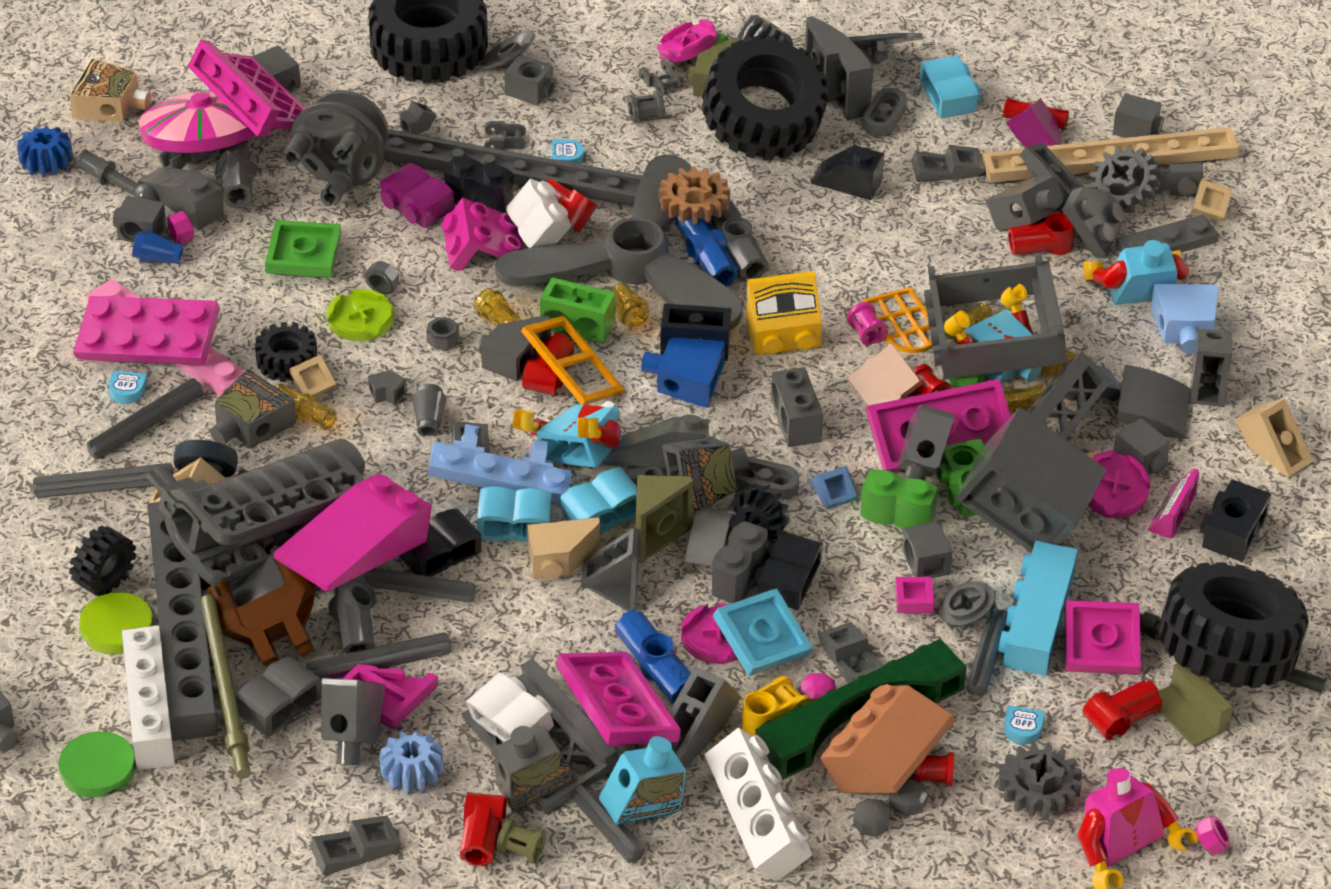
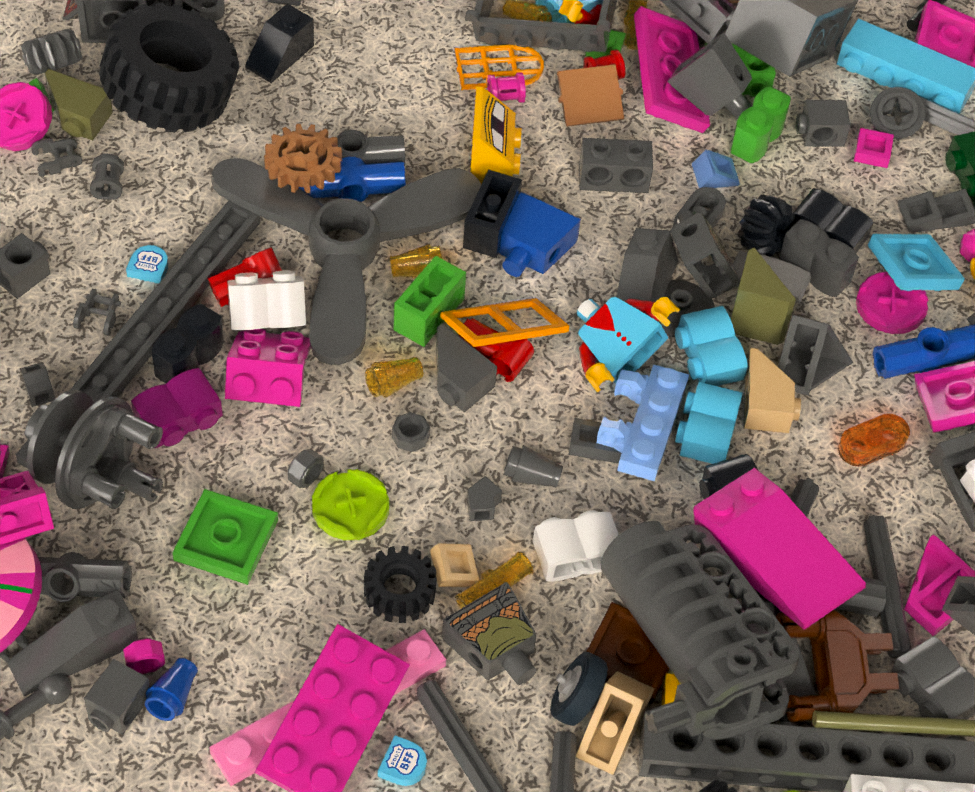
camera: 80 degrees left, 10 degrees up
(363, 436) = (573, 545): none -> white brick
(540, 632) = (870, 439): none -> clear orange plate

